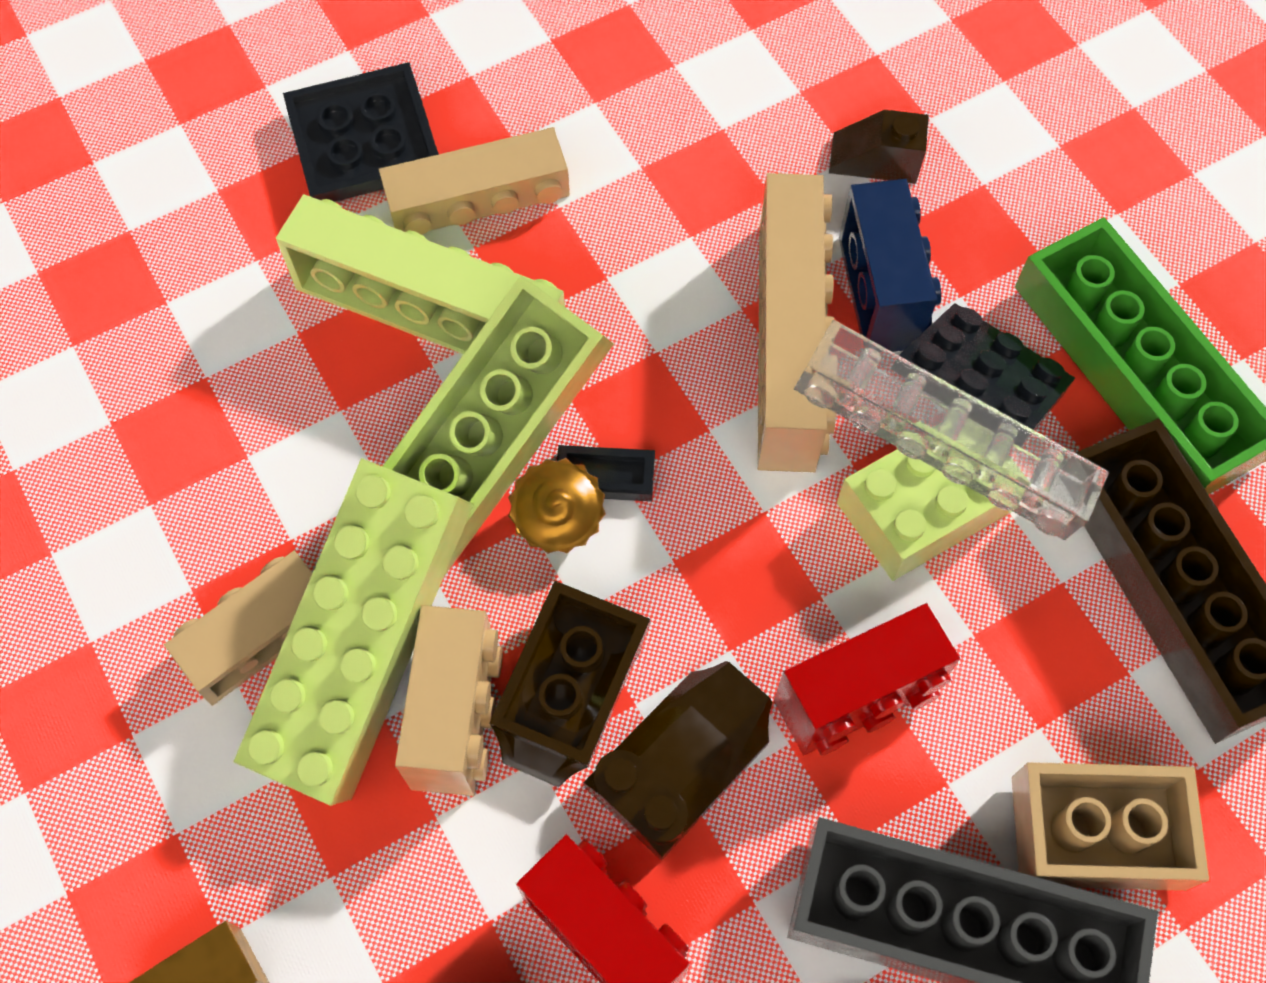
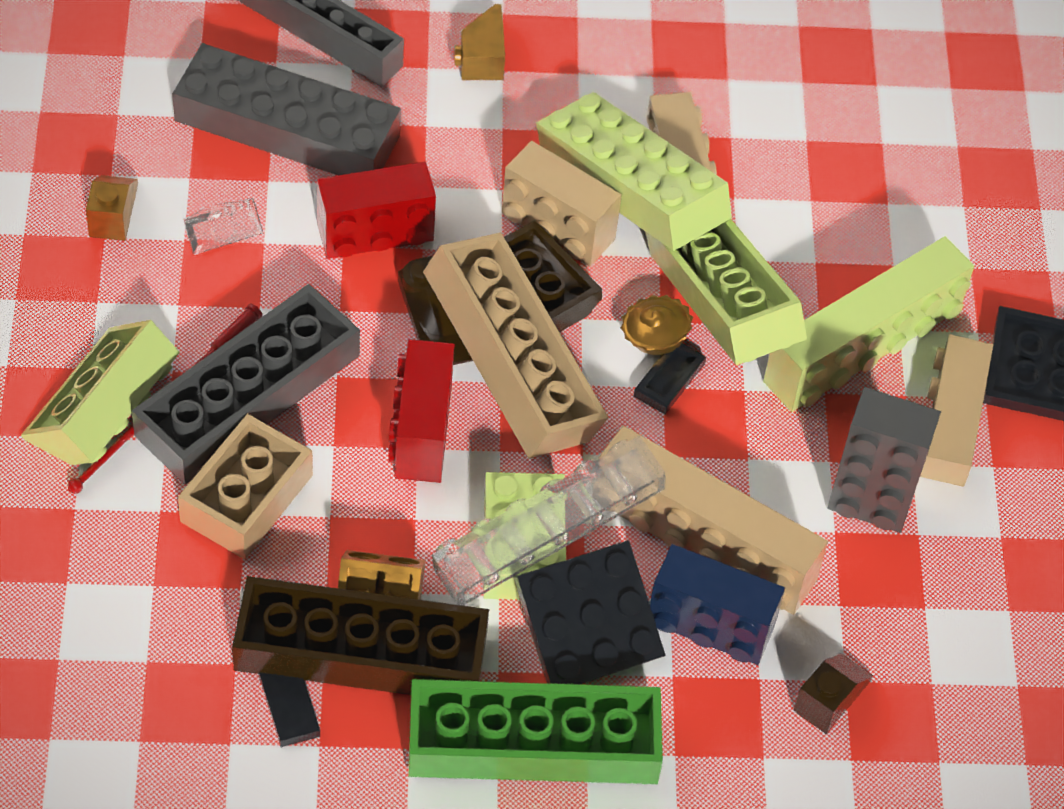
camera: 115 degrees right, 10 degrees down
(635, 162) = (883, 459): none -> dark grey brick
(708, 630) = (515, 345): none -> tan brick
(1110, 593) = (381, 574): none -> pearl gold brick

